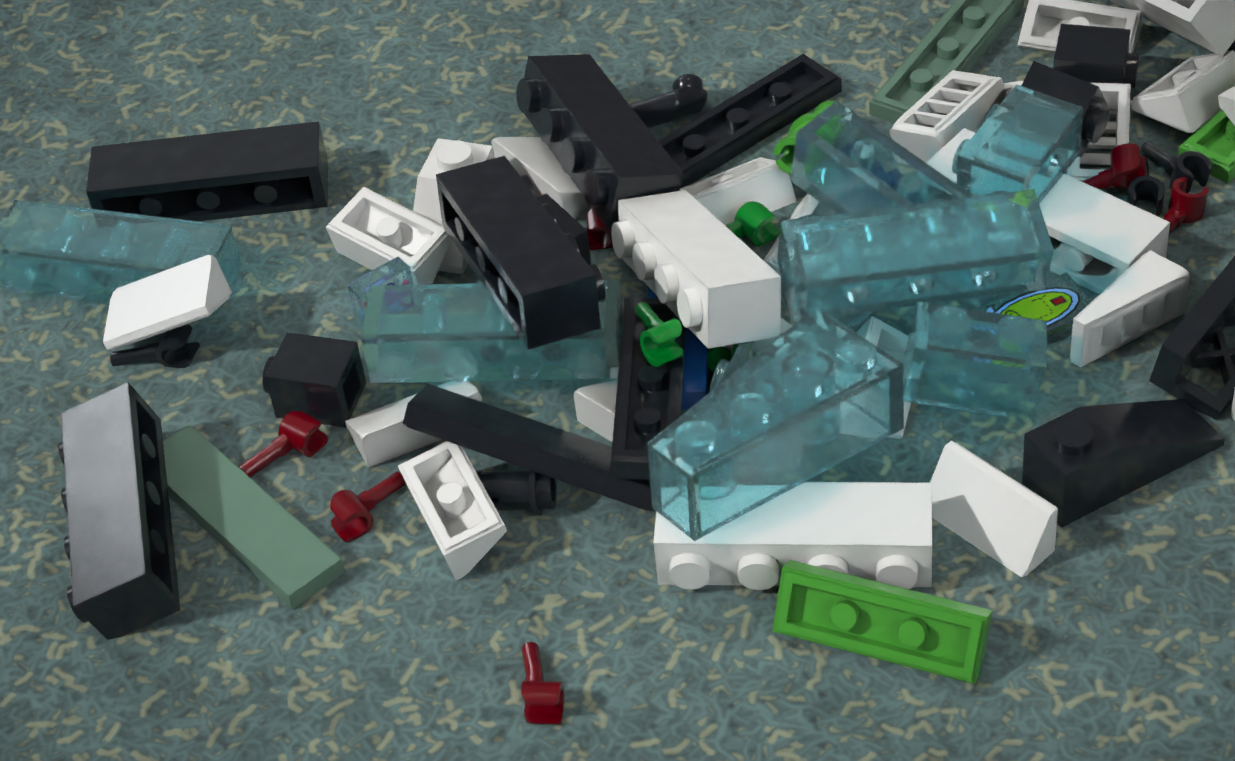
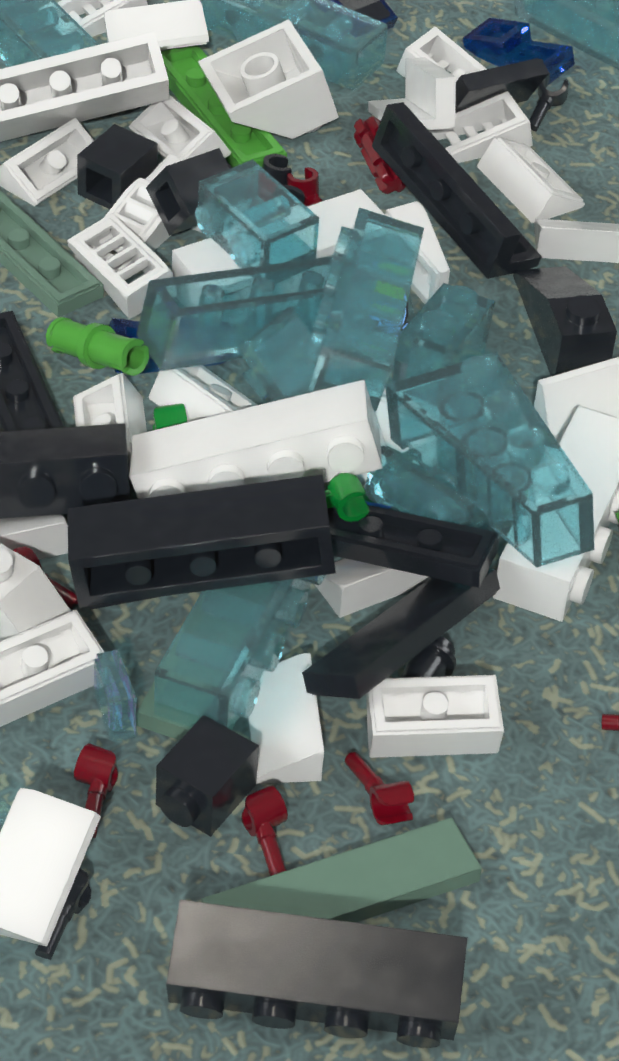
camera: 80 degrees left, 0 degrees up
(304, 321) = (98, 770): none -> dark red hand

